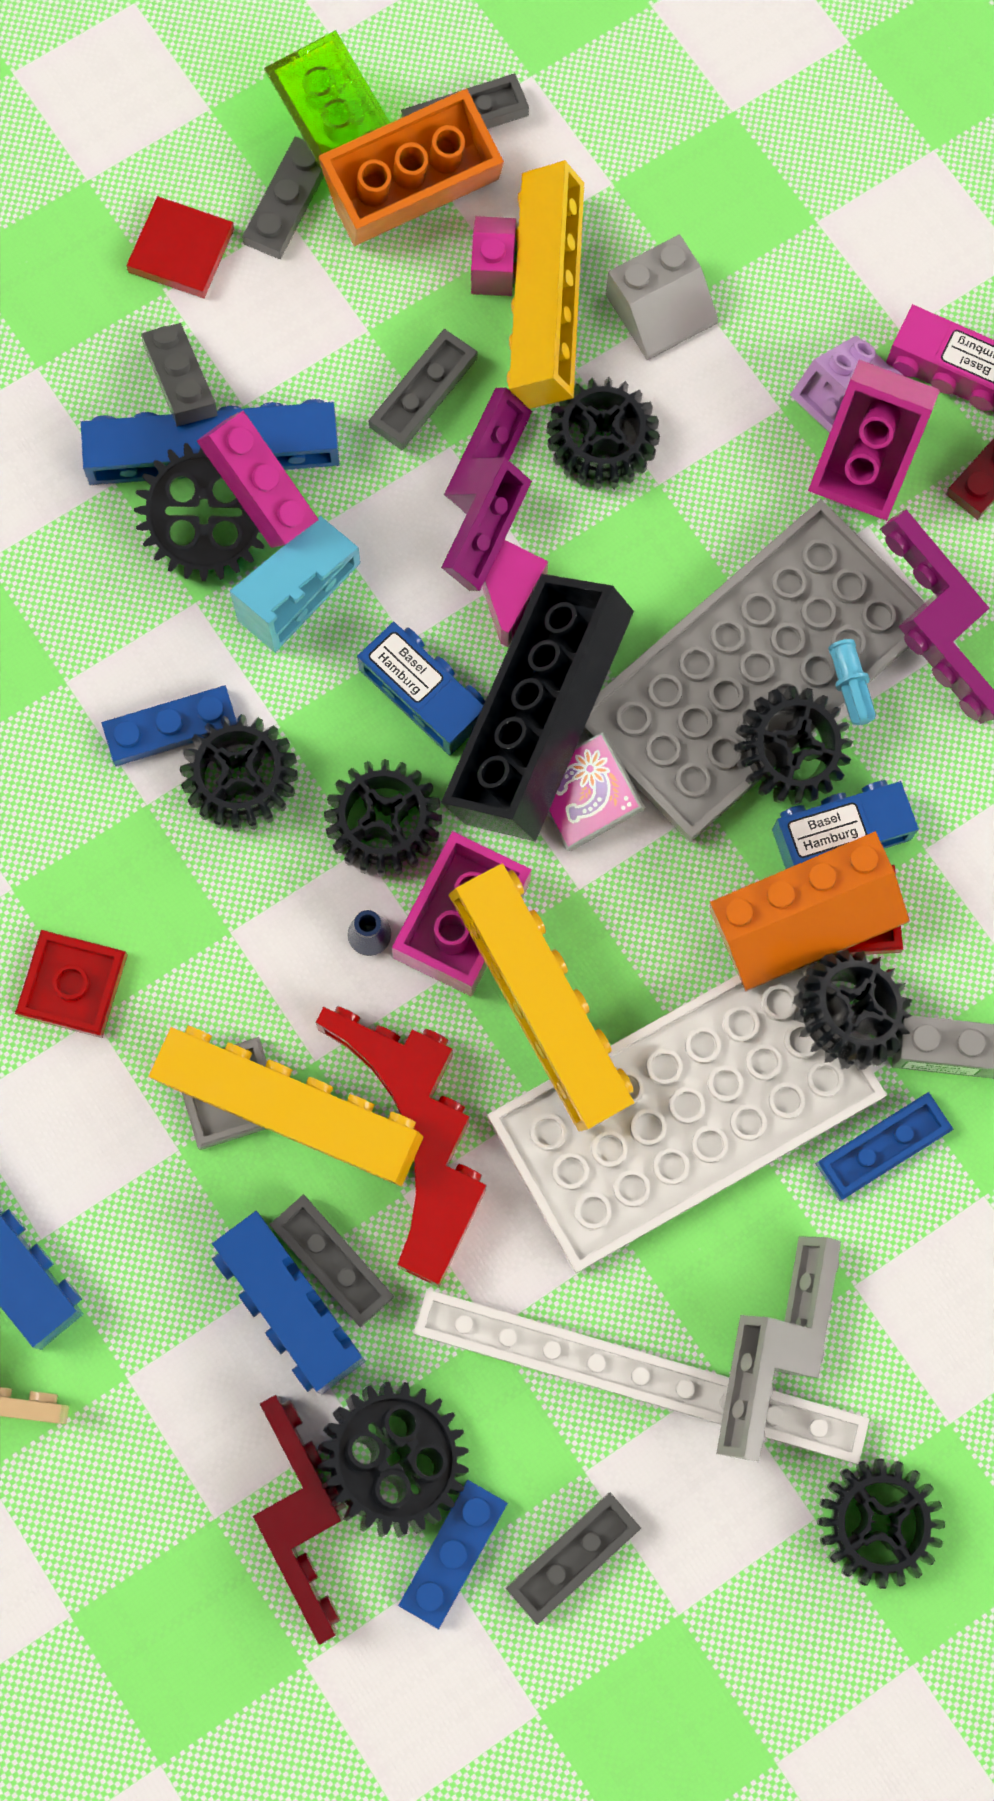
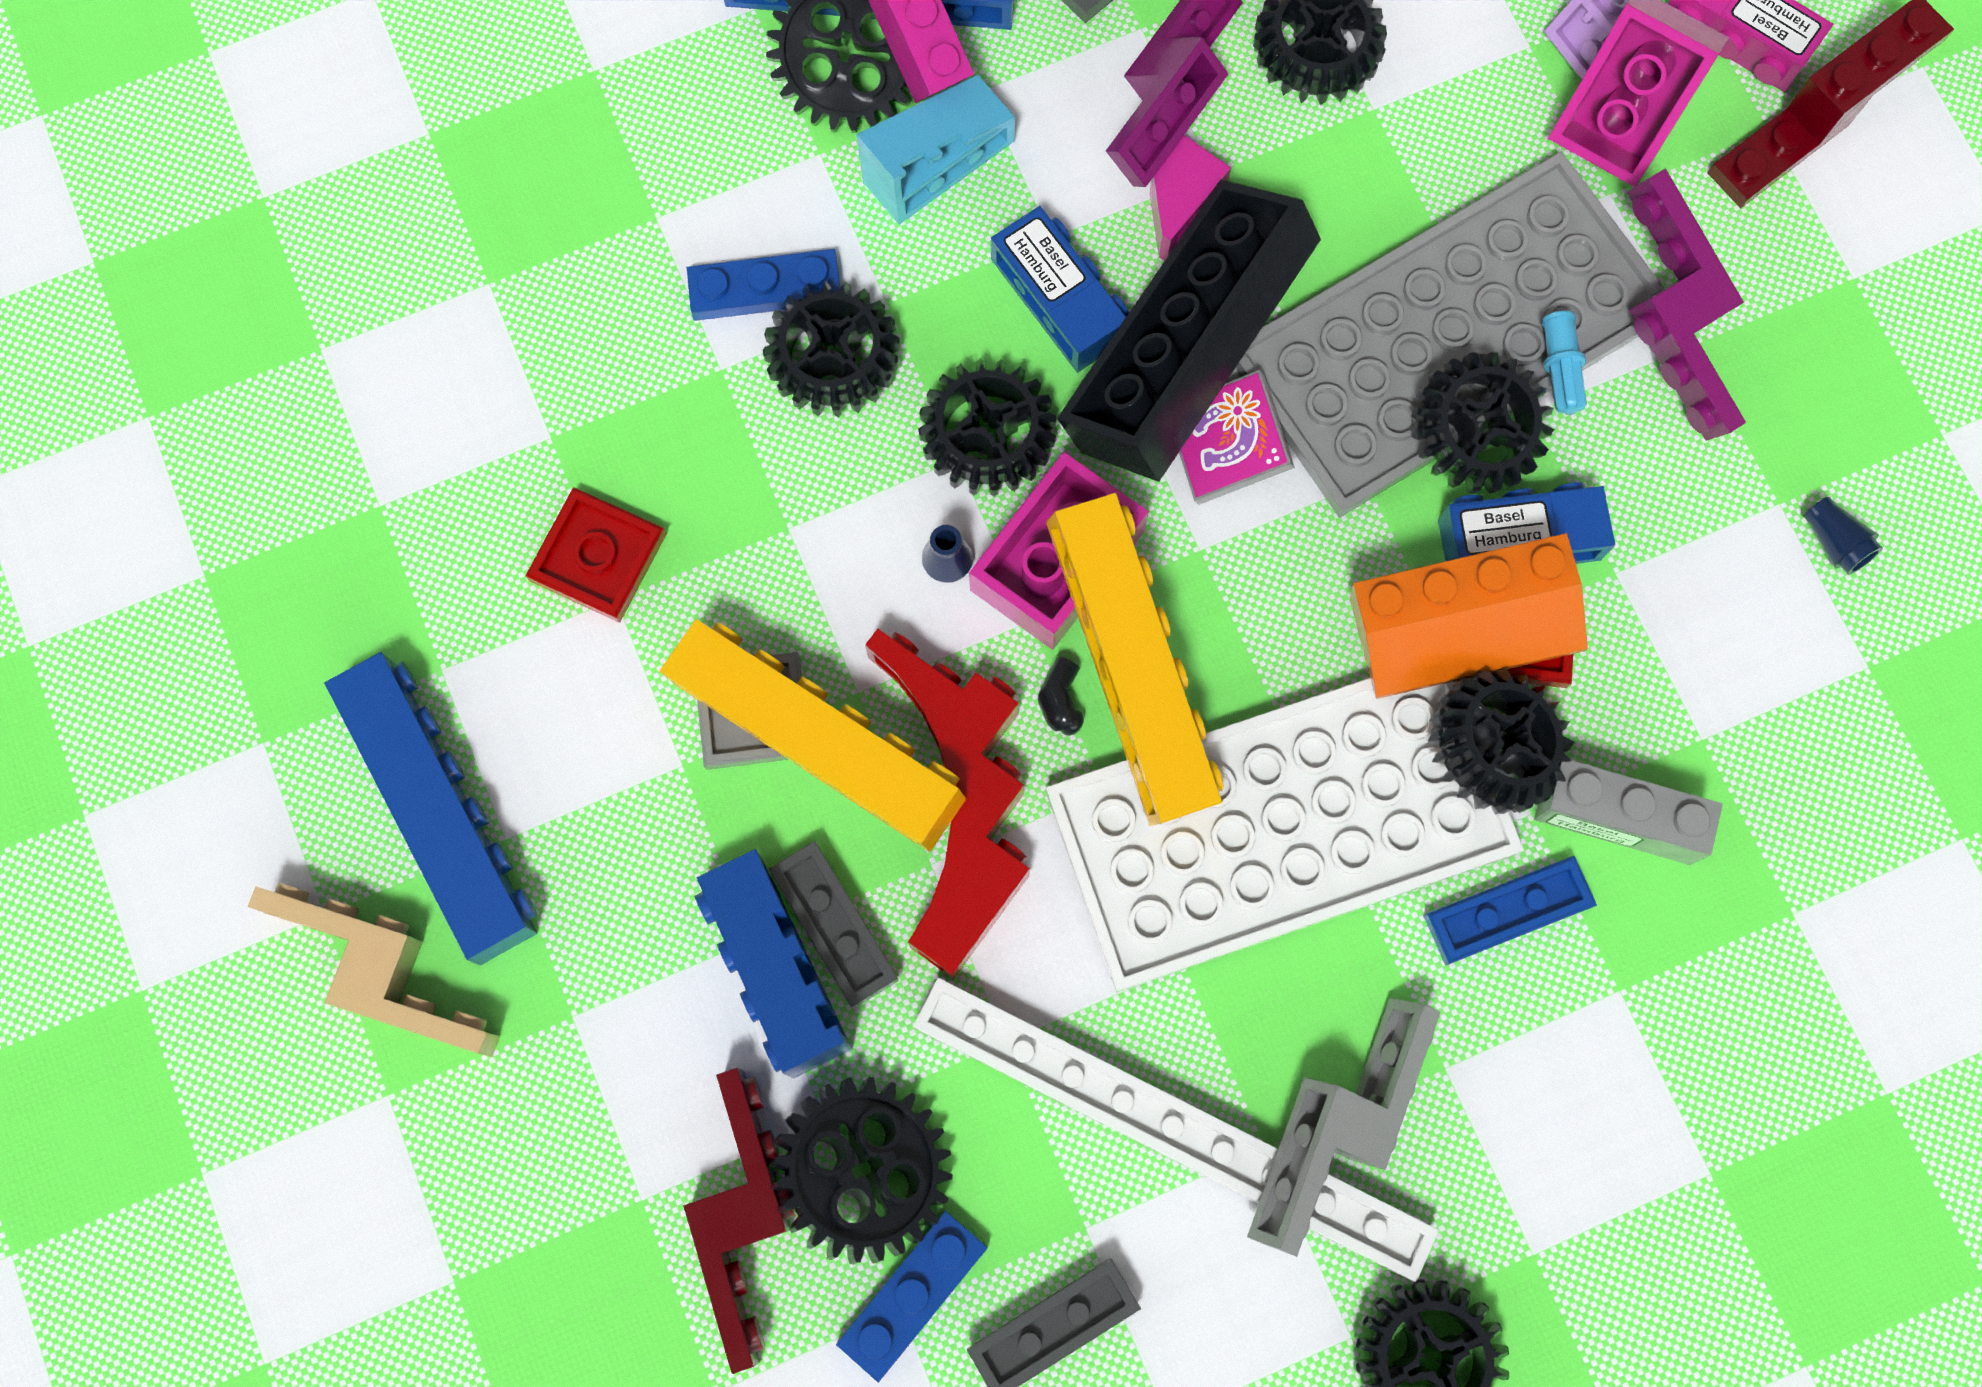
camera: 15 degrees right, 0 degrees up
(481, 1038) = (1056, 701): none -> black arm

